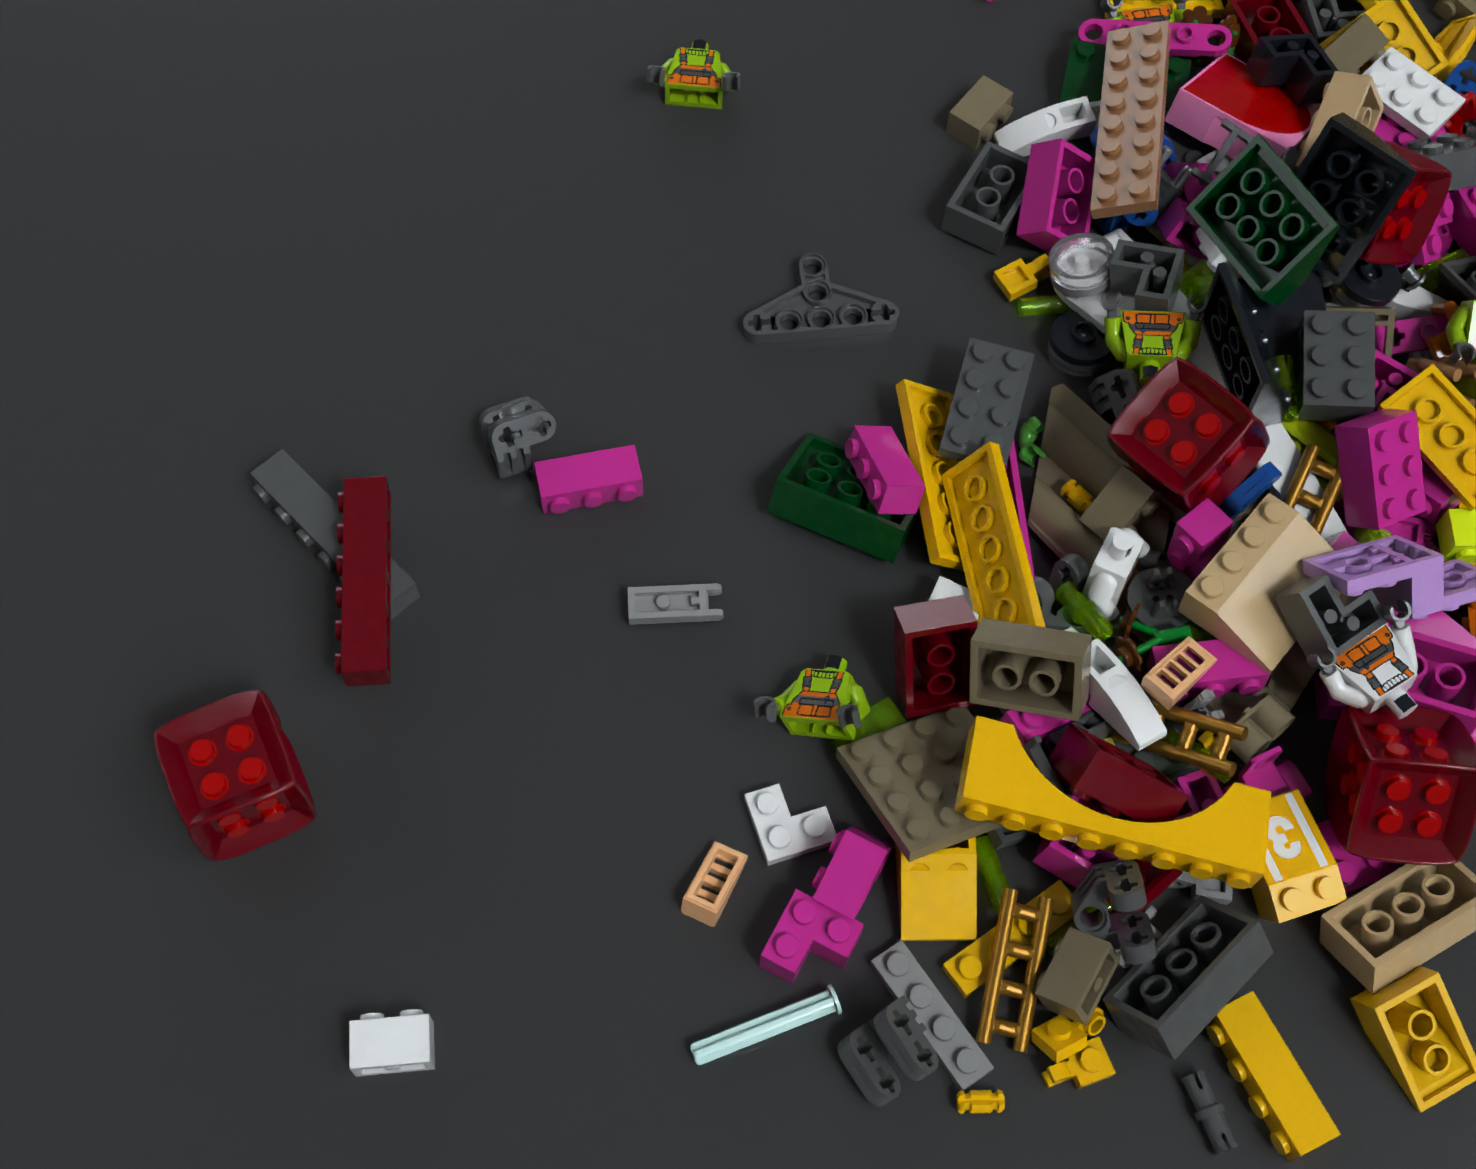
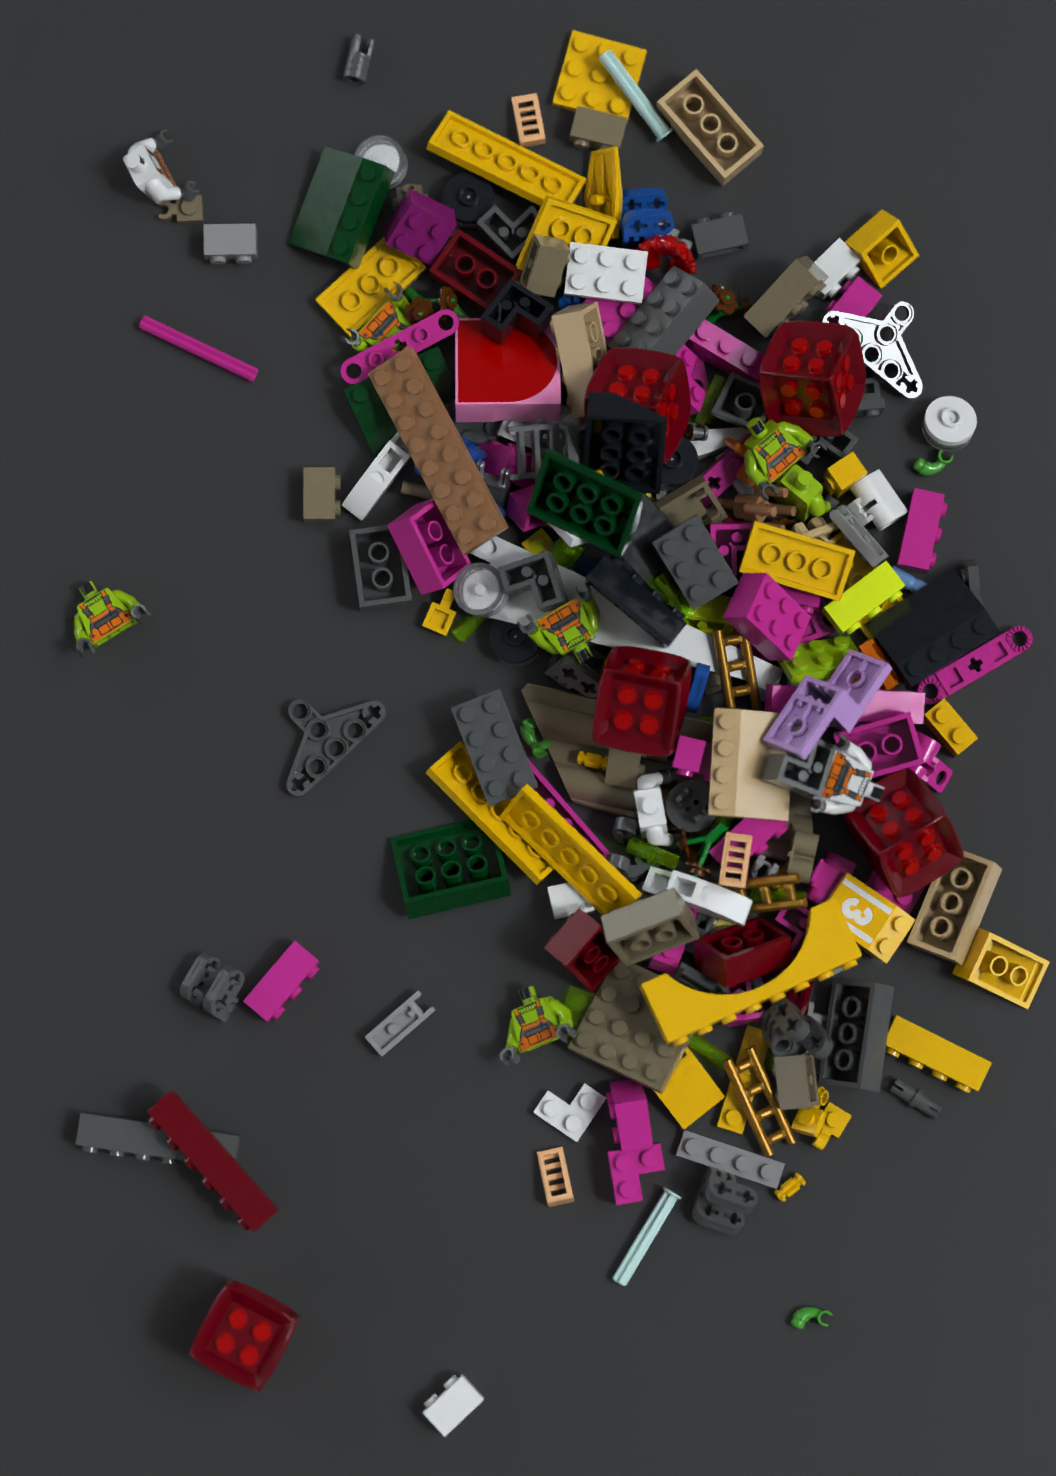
camera: 40 degrees left, 20 degrees up
(884, 469) = (462, 840): dark pink brick -> none

